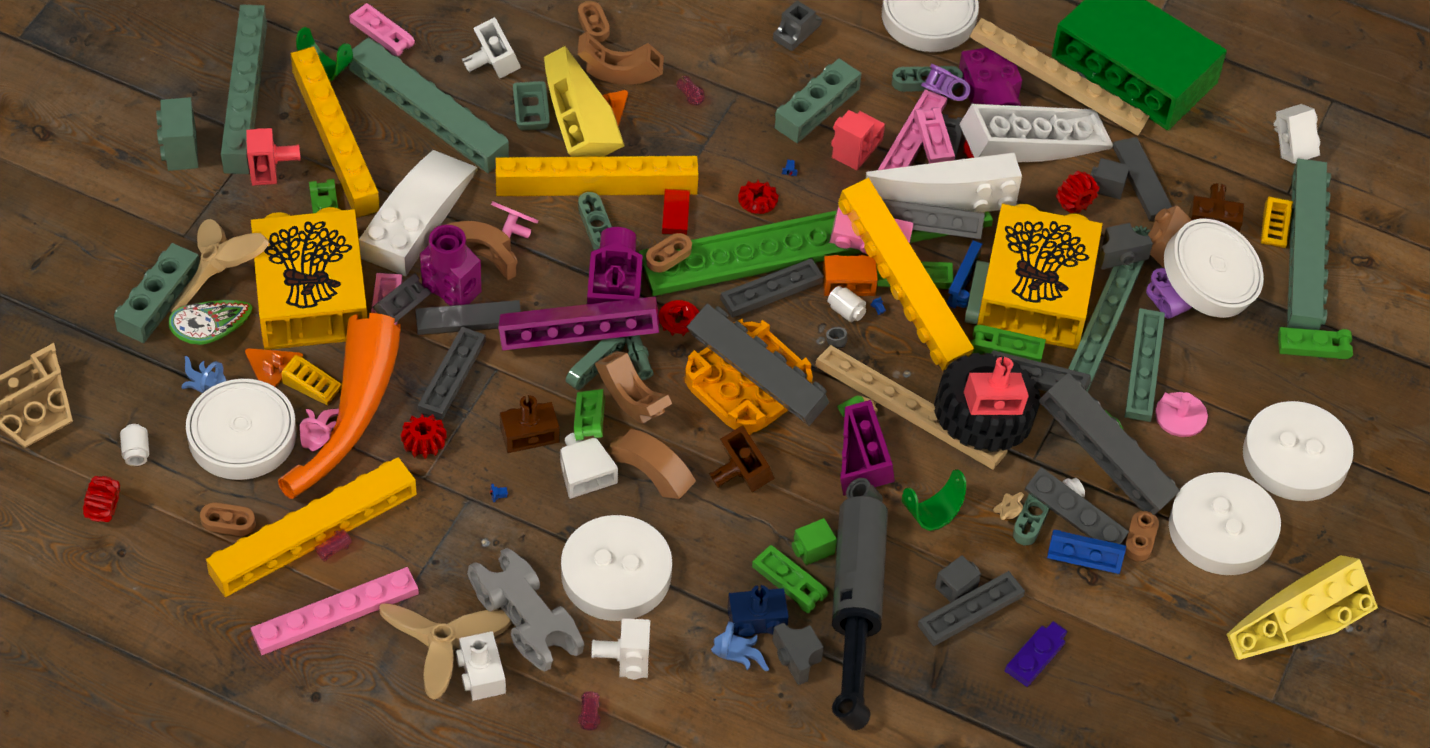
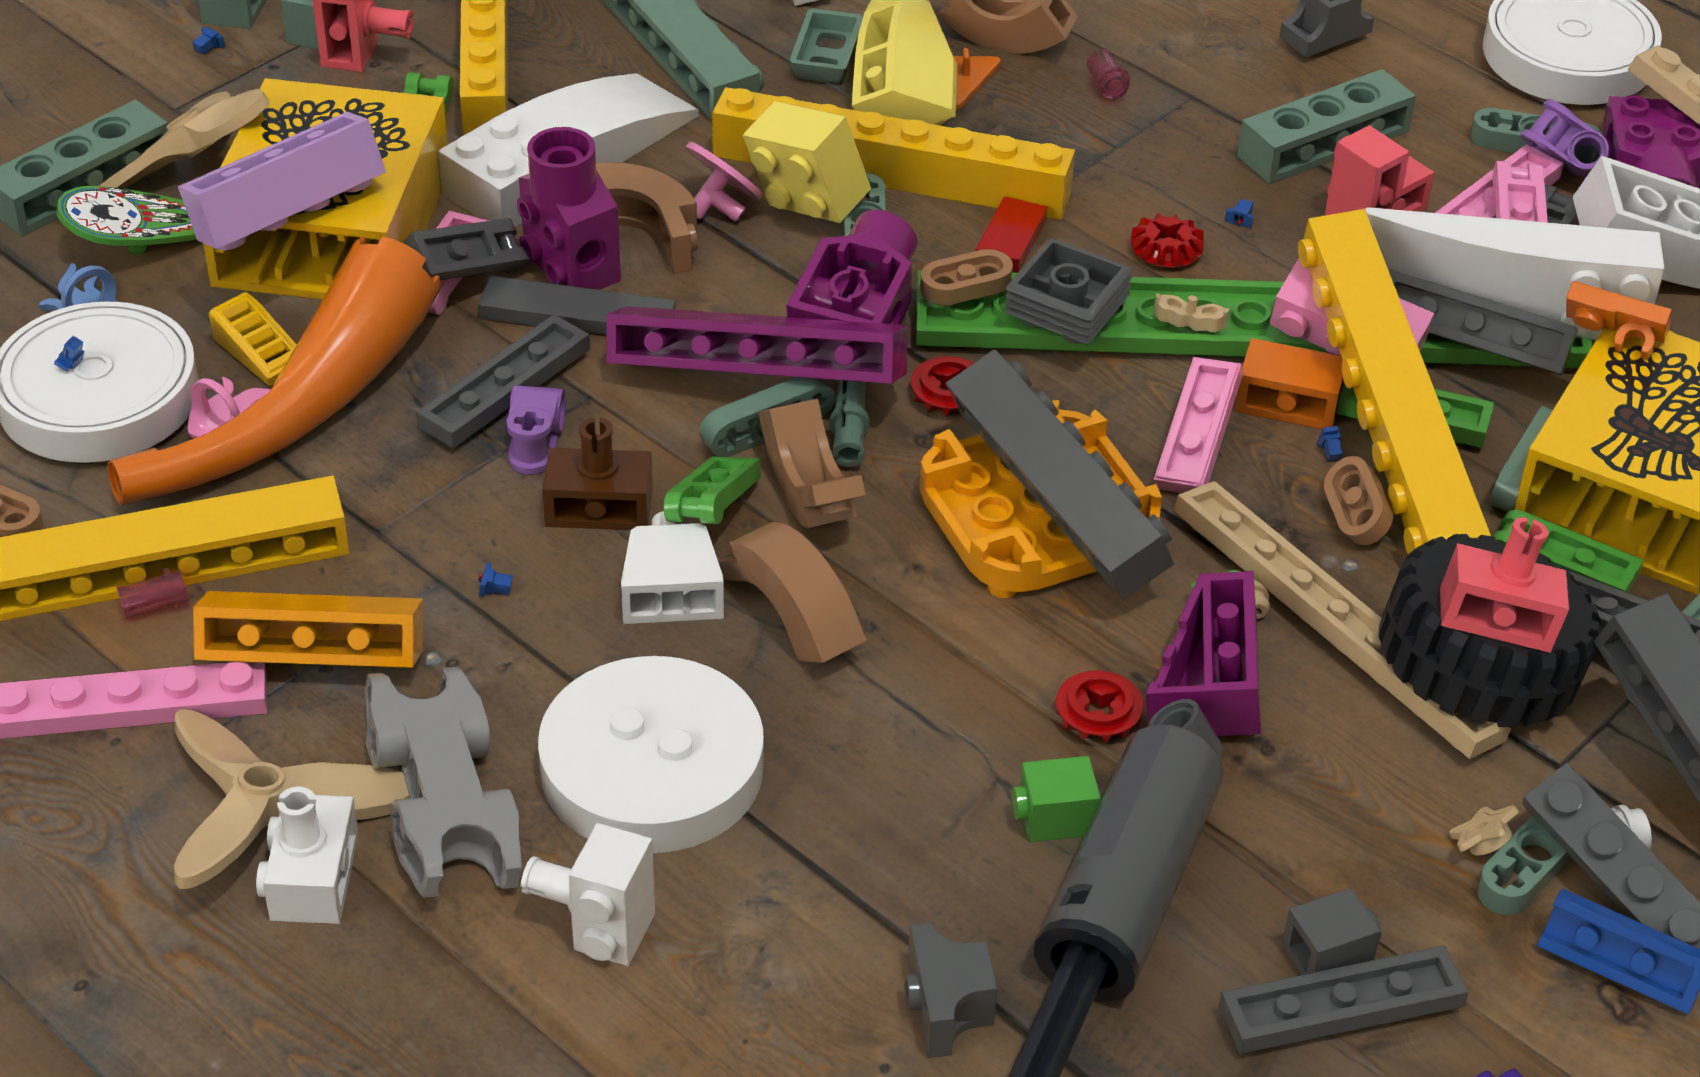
camera: 20 degrees right, 10 degrees down
(180, 184) = (208, 40): none -> blue piece
(228, 420) = (71, 354): none -> blue piece
(269, 364) = (194, 302): orange piece -> none
(305, 293) = (282, 181): none -> lavender brick
(423, 435) = (403, 460): red gear -> none
(425, 546) = (308, 629): none -> light orange brick
(480, 398) = (535, 425): none -> medium lavender piece
(560, 199) = (807, 161): none -> light yellow brick
(589, 715) = (474, 1005): clear pink pin -> none
(725, 250) = (1068, 291): none -> dark grey brick
(737, 648) = (825, 953): medium blue piece -> none
(744, 461) = (971, 630): reddish brown brick -> none
(757, 610) = (889, 889): dark blue brick -> none
(771, 287) = (1124, 373): dark grey plate -> none
(791, 577) = (985, 853): bright green plate -> none
(794, 247) = (1181, 313): none -> tan piece
(813, 314) = (1198, 425): none -> bright pink tile
(813, 476) = (1102, 690): none -> red gear
(838, 332) = (1232, 473): dark grey hinge -> none
(847, 304) = (1270, 425): white brick -> none
(904, 339) = (1358, 500): none -> medium nougat plate
(941, 507) = (1340, 804): green piece -> none
(959, 296) = (1503, 432): blue hinge -> none
(994, 209) = (1599, 309): none -> orange plate

